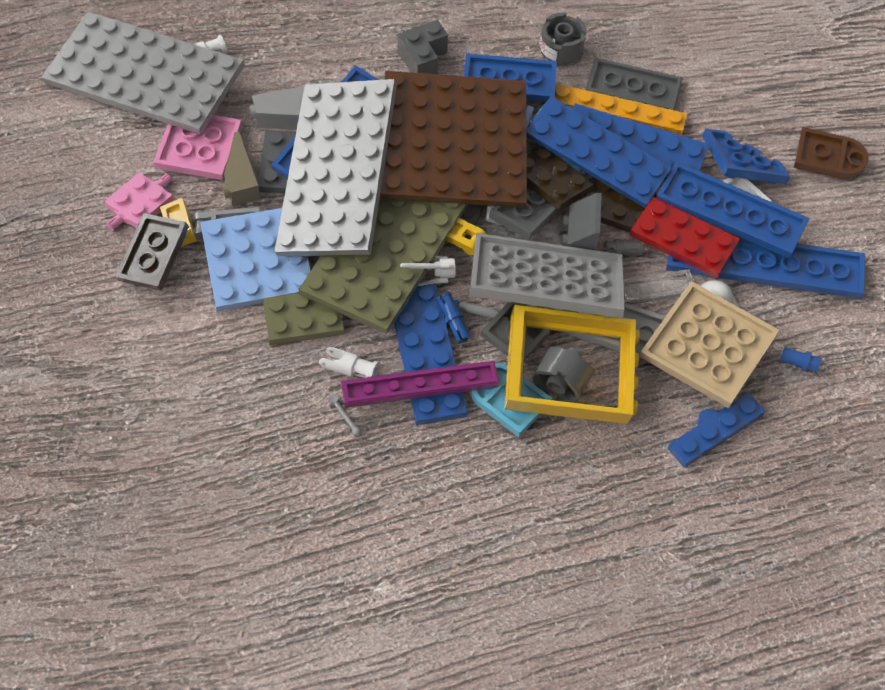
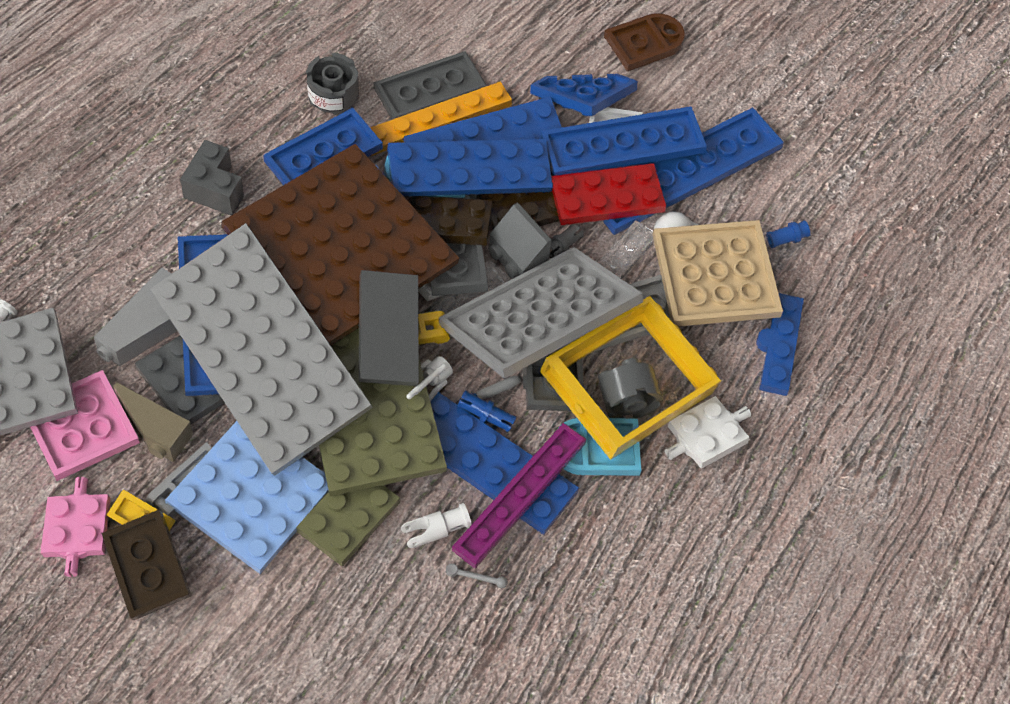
camera: 45 degrees left, 0 degrees up
(428, 211) = (388, 328): none -> dark grey tile
(597, 446) = (708, 432): none -> white plate

